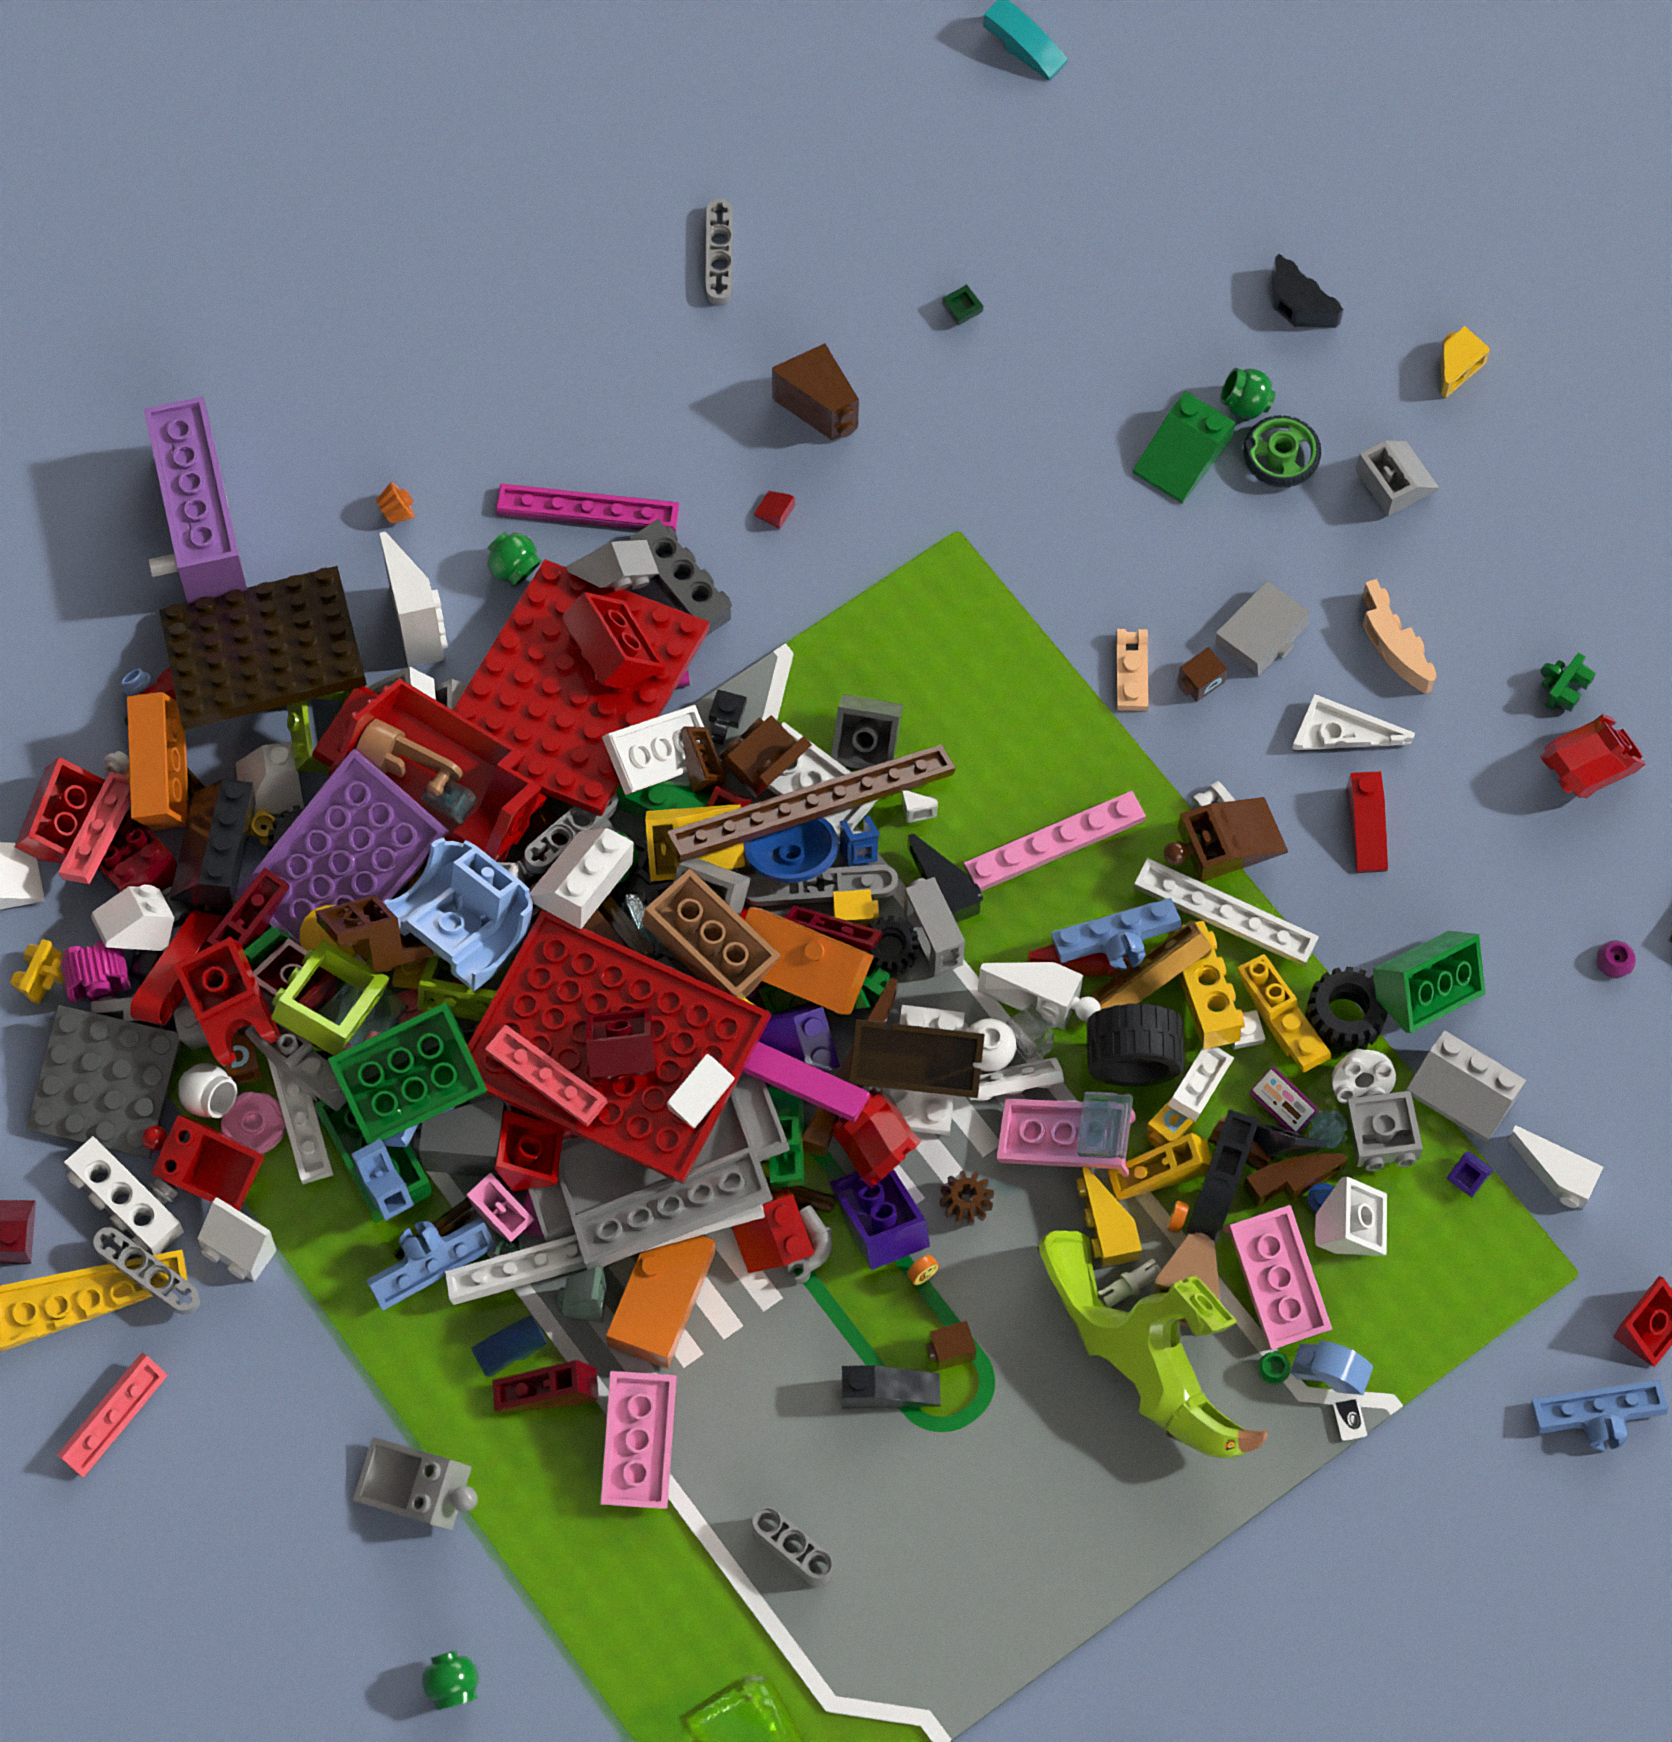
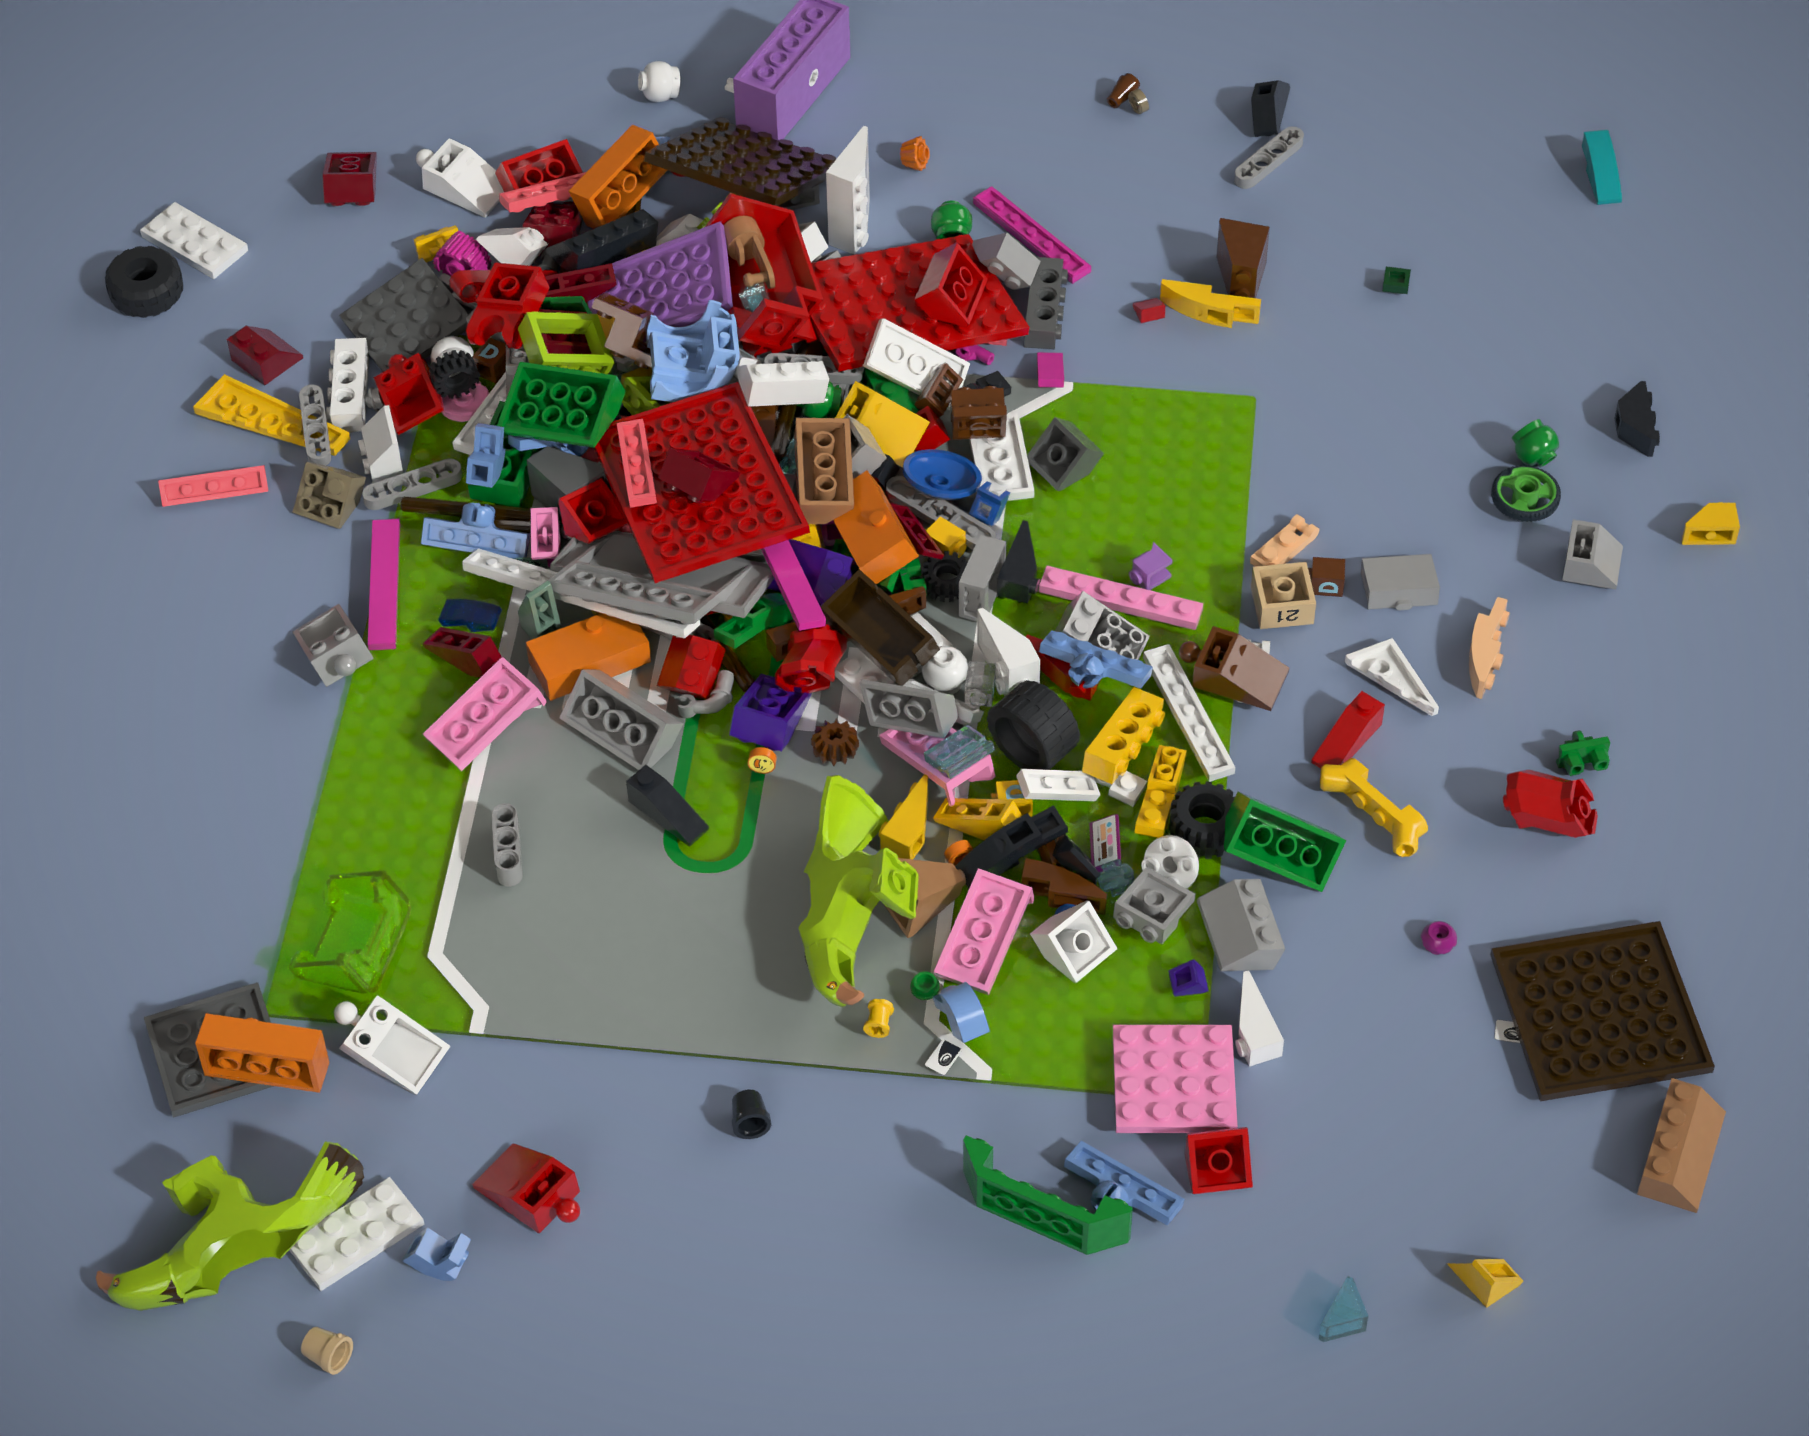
camera: 45 degrees right, 15 degrees down
(66, 612) = (659, 81): none -> white piece
(234, 1331) = (328, 494): none -> dark tan slope
(237, 1110) = (452, 364): none -> black tyre
(309, 1256) = (410, 480): none -> light grey beam
(390, 1236) = (455, 508): none -> dark brown axle
(392, 1381) = (384, 584): none -> dark pink tile
(450, 1680) = (229, 758): green piece -> none
(515, 277) = (1121, 90): none -> reddish brown cone
(542, 280) = (1138, 101): none -> dark tan tile
(671, 195) = (1268, 106): none -> black slope
(700, 1091) = (716, 532): white slope -> none
(757, 648) = (1050, 369): none -> dark pink tile
(760, 1336) = (620, 719): none -> light grey slope
(809, 803) = (977, 454): plate -> none
(816, 468) = (1208, 307): none -> yellow slope
(918, 807) = (1051, 516): white slope -> none
(951, 1346) = (731, 813): reddish brown brick -> none
(1009, 1113) = (909, 708): none -> light grey slope
(1055, 791) = (1150, 568): none -> medium lavender window
(1076, 895) = (1095, 623): none -> light grey slope
(1156, 968) = (1107, 700): pearl gold slope -> none
(1184, 447) = (1460, 448): green slope -> none
(1189, 726) = (1283, 595): none -> tan brick
(1252, 1614) = (749, 1115): none -> black piece
(1276, 1437) = (878, 1018): none -> yellow bush
(1488, 1501) = (1041, 1211): none -> green slope
(1495, 874) = (1404, 824): none -> yellow plate
(1548, 1276) = (1174, 1078): none -> bright pink plate

